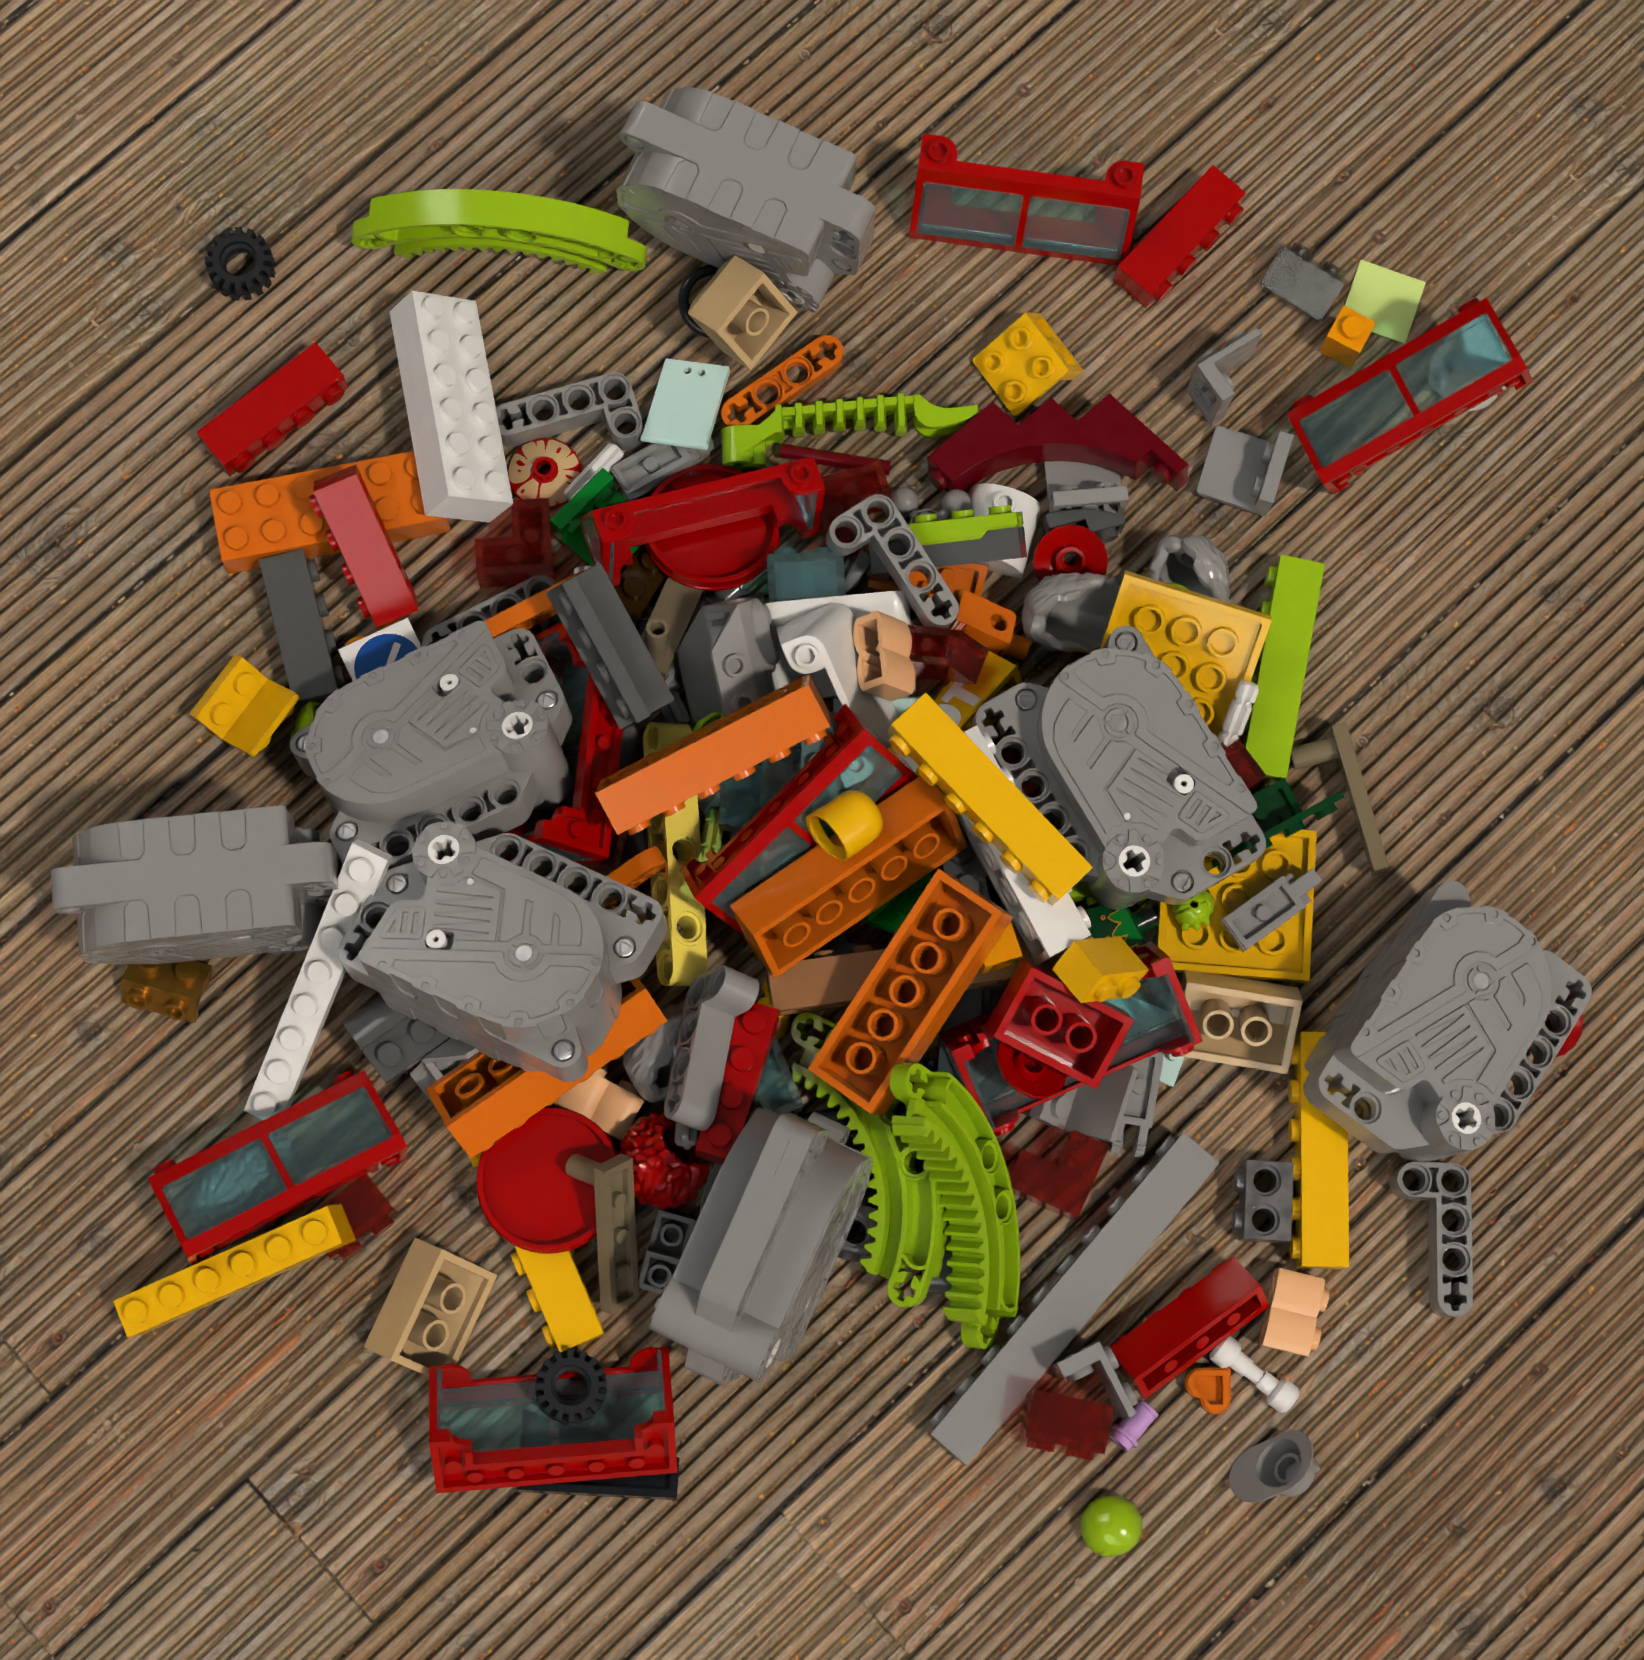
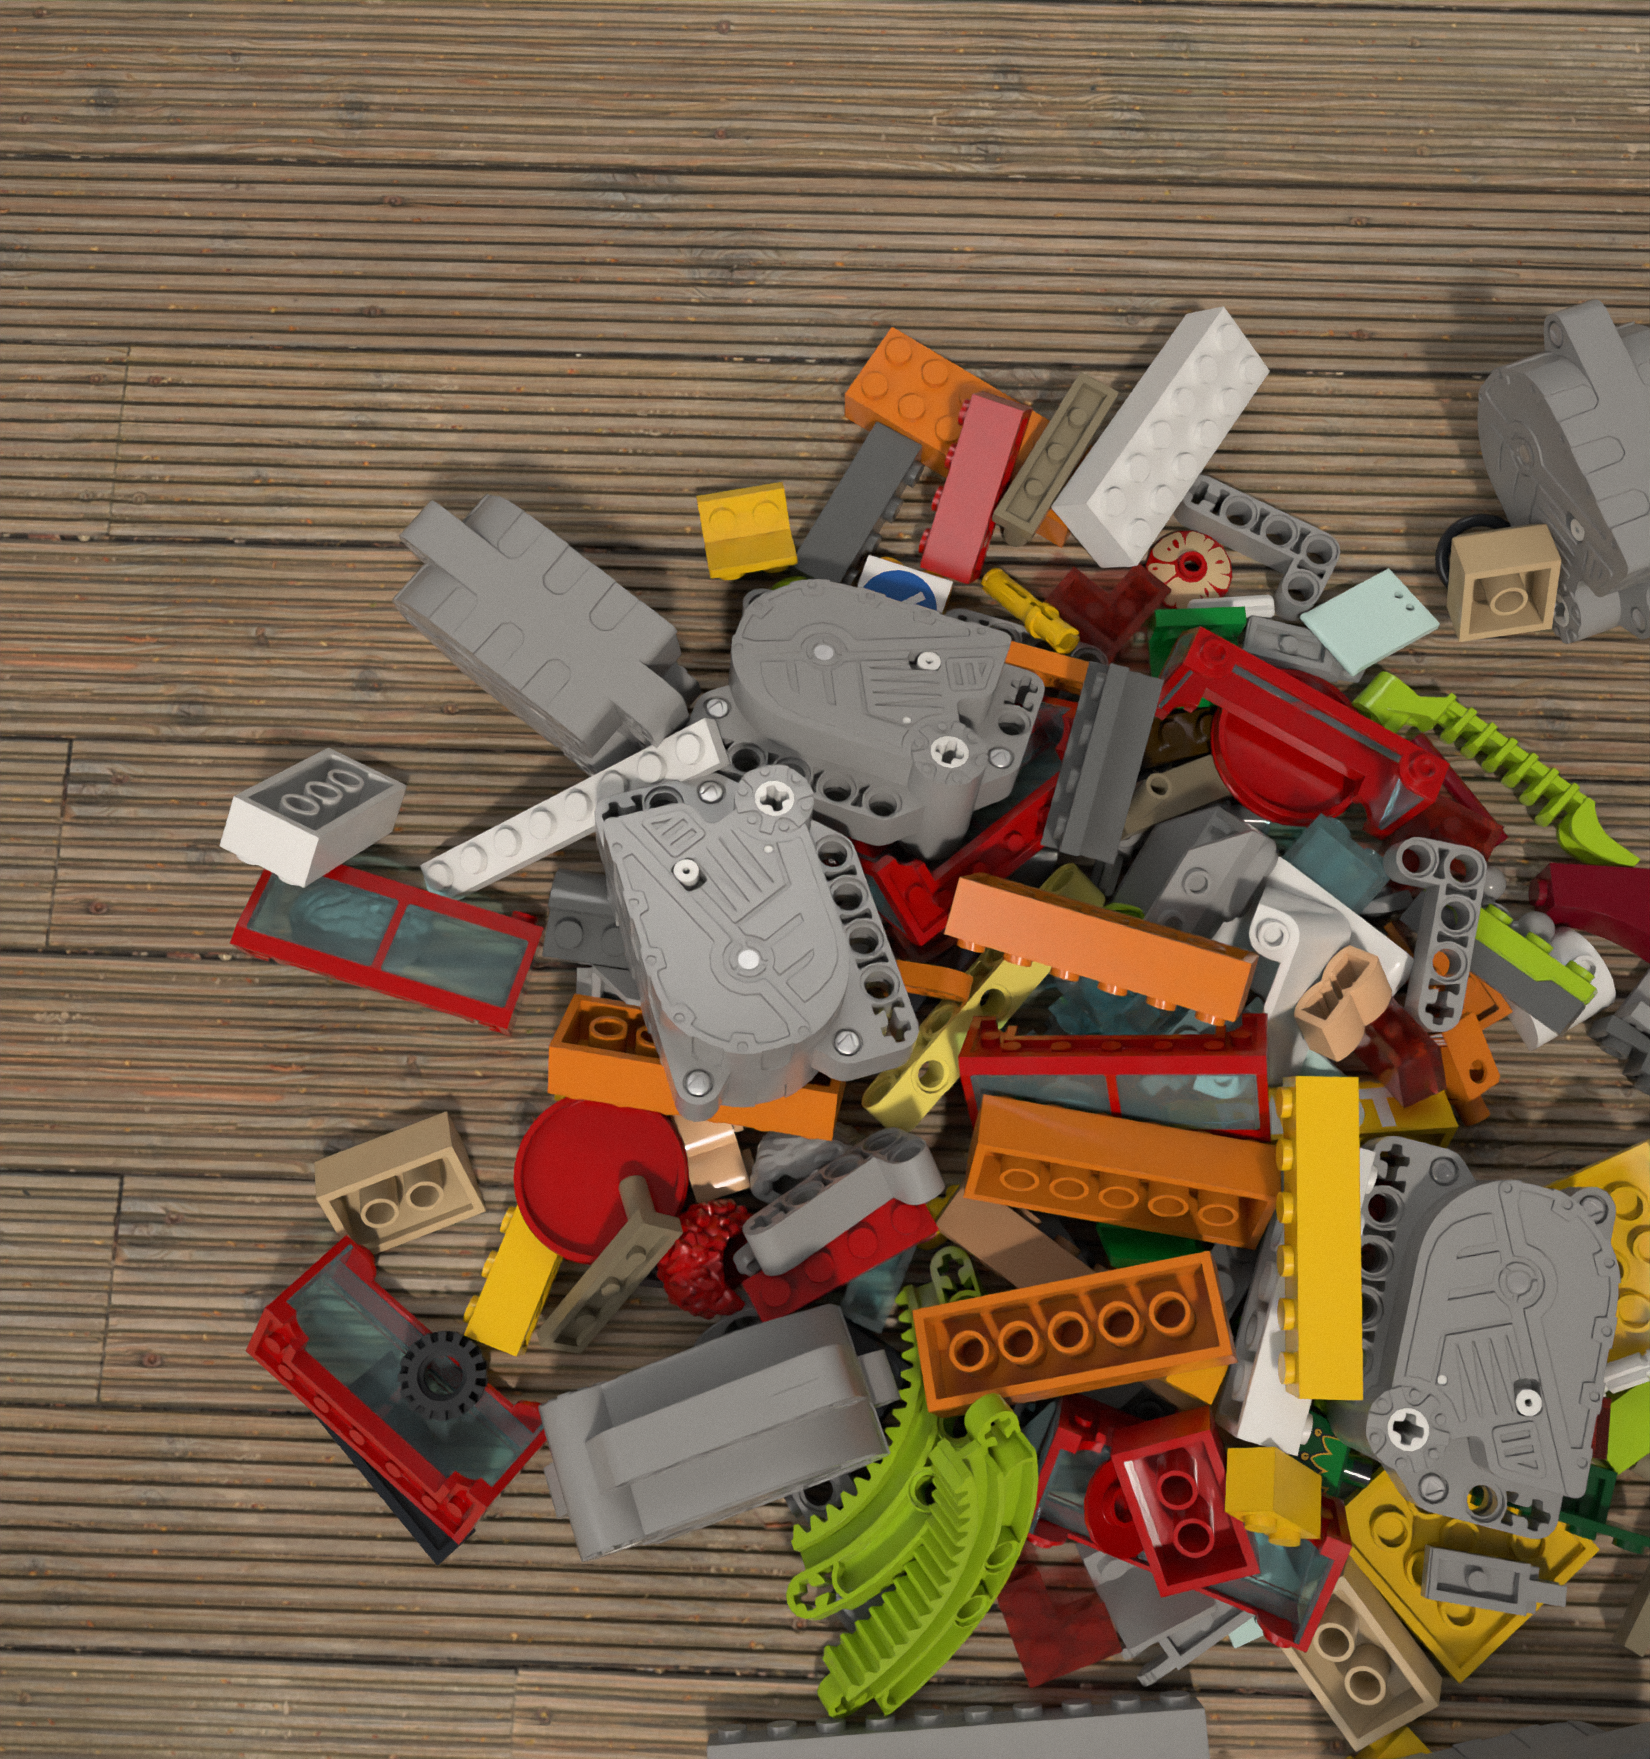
camera: 55 degrees right, 0 degrees up
(155, 1137) = (312, 816): none -> white brick
(166, 988) = (459, 705): pearl gold bracket -> none
(234, 1270) = (275, 992): yellow brick -> none
(237, 243) = (1099, 151): black tyre -> none
(273, 410) = (1011, 313): red brick -> none
(366, 1211) = (413, 1041): clear red brick -> none
(397, 482) = (1053, 459): none -> dark tan piece
(485, 591) = (1039, 618): none -> yellow pin
(498, 221) = (1359, 318): lime gear -> none
(665, 1248) = (642, 1338): dark grey slope -> none
(711, 834) = (1033, 1012): light yellow axle -> none
(778, 380) = (1472, 678): orange beam -> none
(852, 818) = (1173, 1126): yellow helmet -> none
(1065, 539) = (1592, 1100): red dish -> none
(1069, 611) = (1554, 1124): light grey hair -> none
(1196, 916) = (1404, 1515): lime animal -> none

